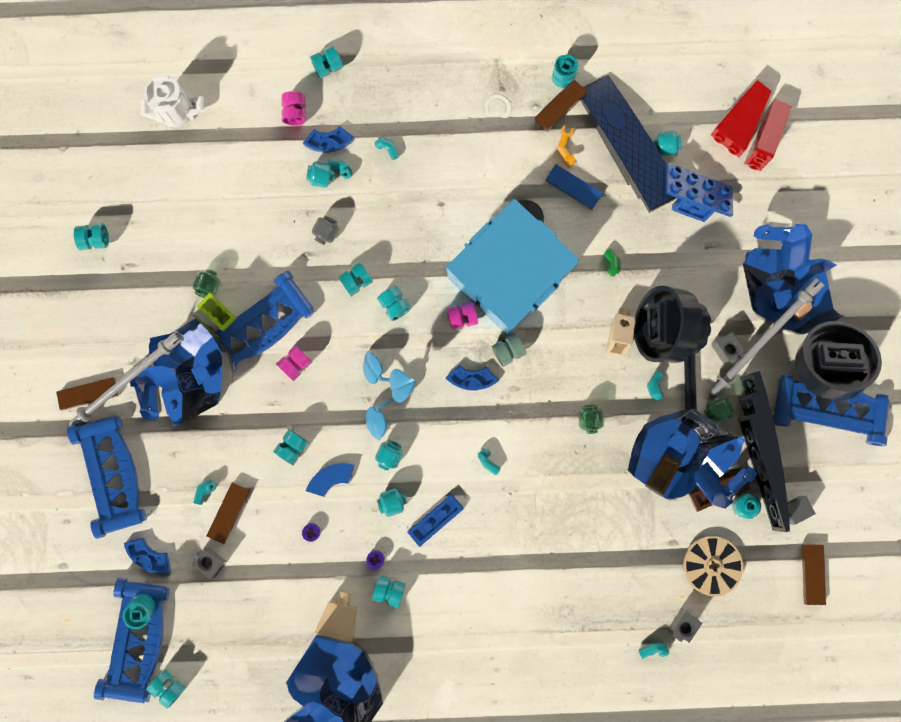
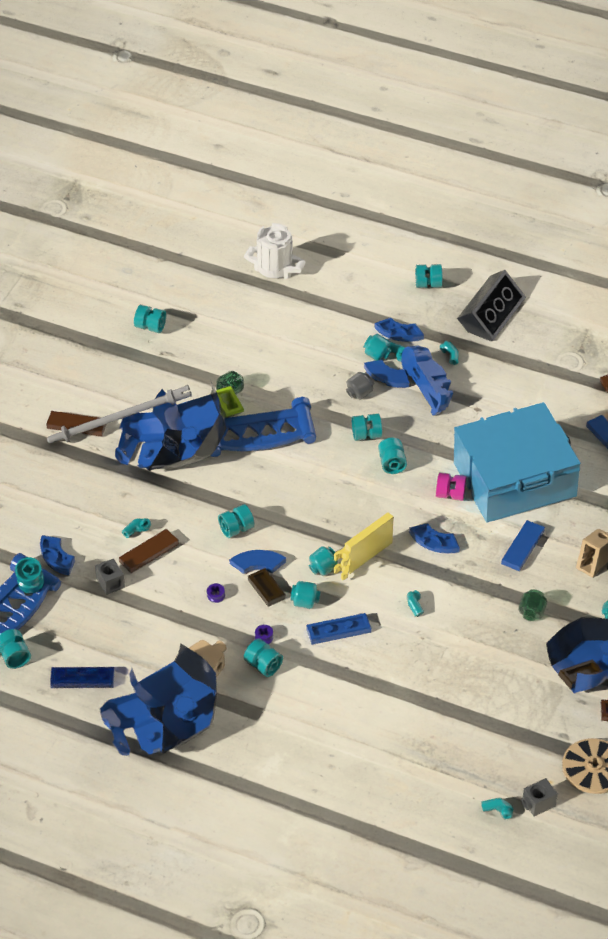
camera: 25 degrees right, 35 degrees down
(90, 437) = (42, 511): blue piece -> none
(251, 678) = (82, 677): none -> clear blue tile
(292, 365) = (273, 464): dark pink wheel -> none
(293, 108) = (380, 295): dark pink wheel -> none
(341, 202) = (392, 377): none -> blue tile
(351, 503) = (266, 587): none -> dark brown tile
(384, 192) = (428, 376): none -> blue piece
(400, 73) = (492, 306): none -> black slope
(400, 385) = (361, 514): dark azure plant -> none
(419, 428) = (365, 545): none -> light yellow tile
(509, 349) = (481, 526): sand green wheel -> none
(551, 350) = (523, 545): none -> blue tile

